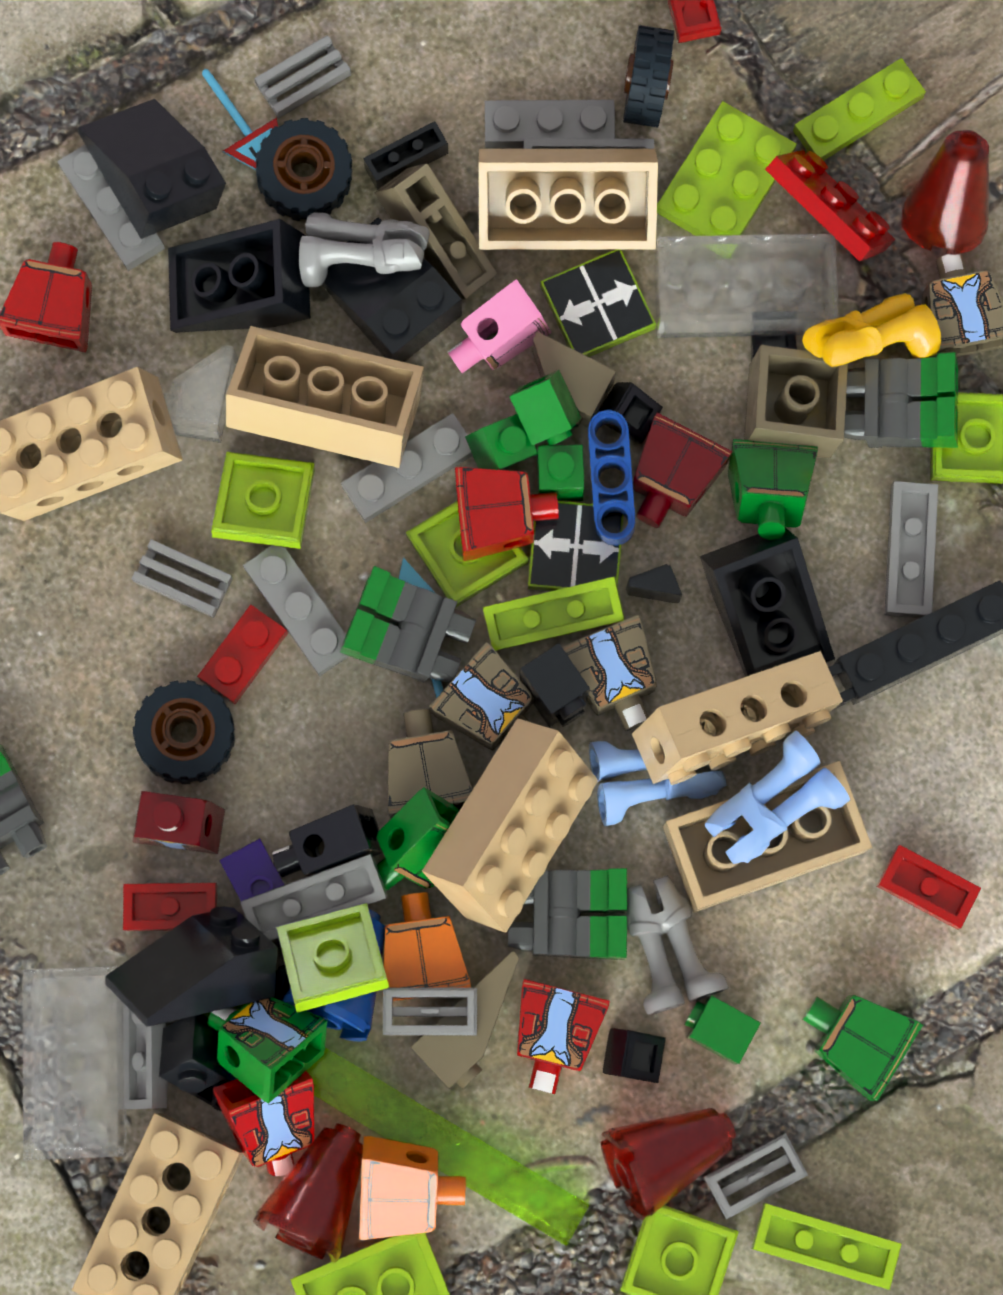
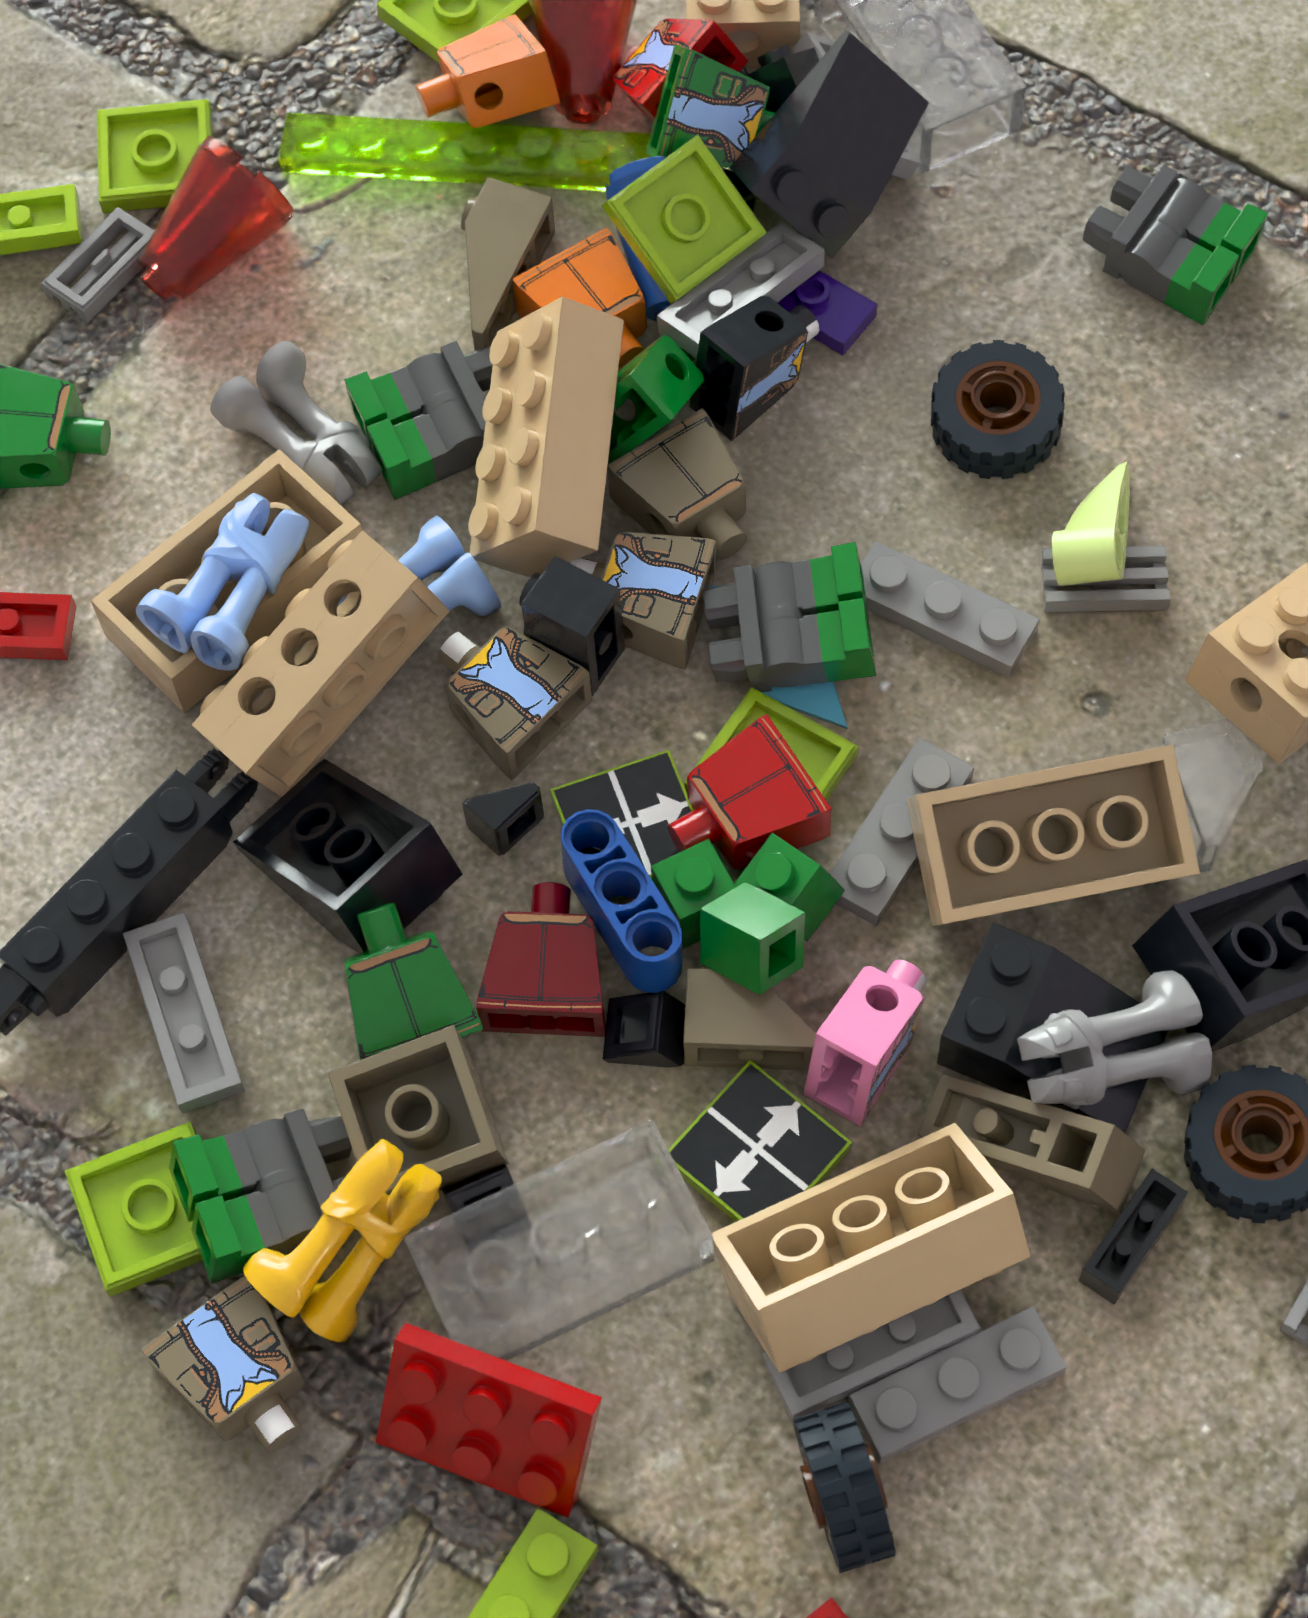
camera: 160 degrees right, 15 degrees down
(165, 904) = (906, 237): red plate -> none
(173, 604) = (1096, 534): none -> yellowish green piece
(178, 822) = (945, 305): dark red torso -> none
(242, 654) = (980, 528): red plate -> none
(263, 500) = (1059, 702): lime tile -> none
(469, 1011) = (551, 238): light grey tile -> none
(554, 613) = (617, 723): lime plate -> none
(556, 1030) = (395, 299): torso -> none
(634, 1055) = (296, 315): black slope -> none
(721, 1029) = (194, 369): green brick -> none
(724, 175) = (663, 1423): lime plate -> none
(951, 196) = (312, 1495): clear red cone -> none

